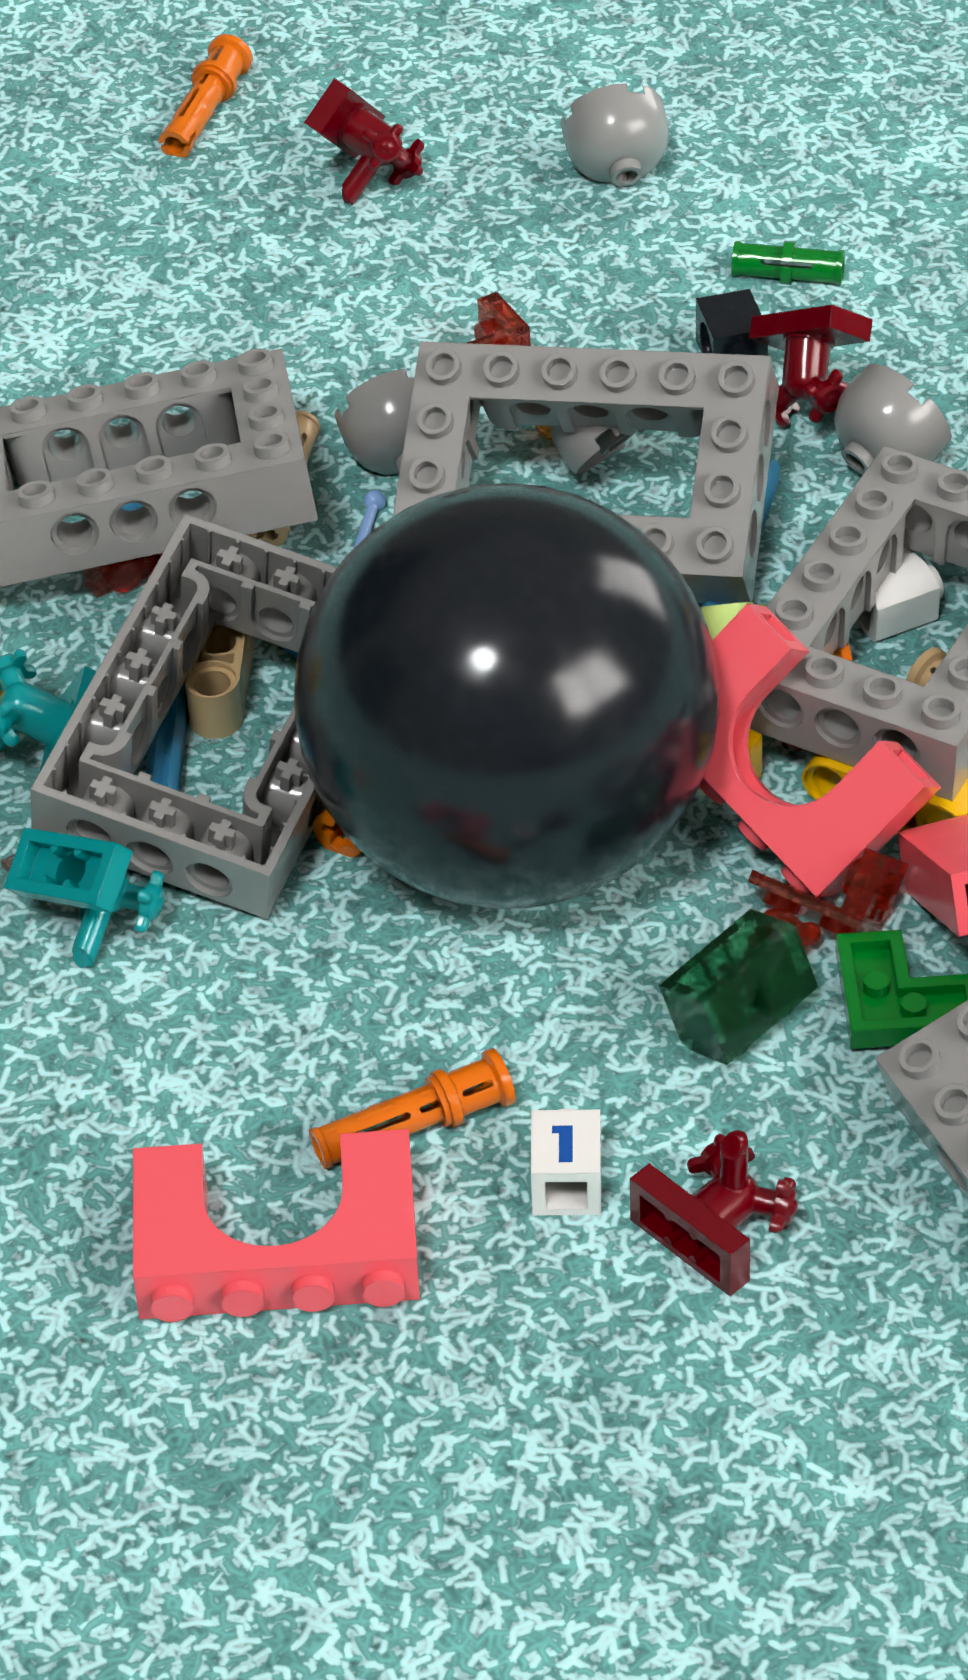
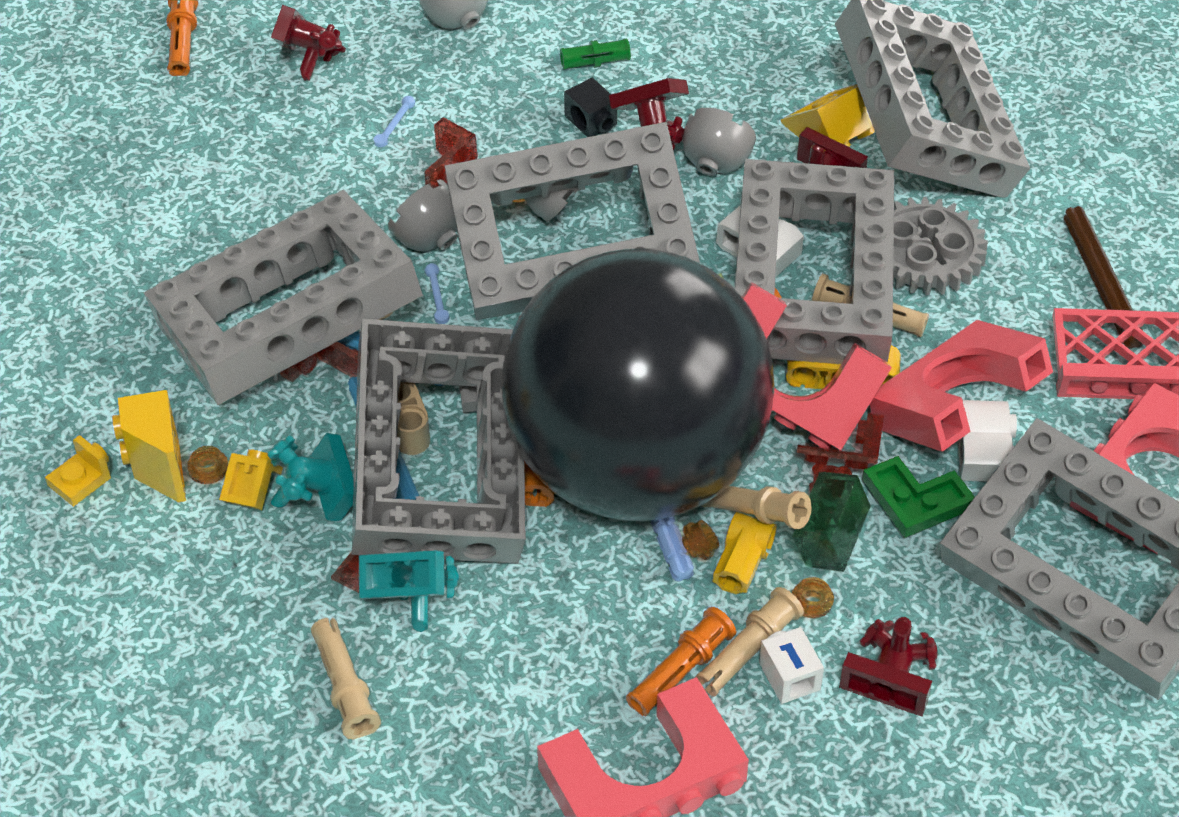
camera: 25 degrees left, 5 degrees up
(407, 308) = (381, 139): none -> light blue hinge
(497, 959) = (673, 548): none -> light blue axle
(537, 959) = (700, 540): none -> clear orange plate
(584, 1088) = (759, 626): none -> tan pin
(602, 983) = (743, 551): none -> yellow piece
(645, 930) = (766, 504): none -> tan pin
(658, 1072) = (818, 589): none -> clear orange plate

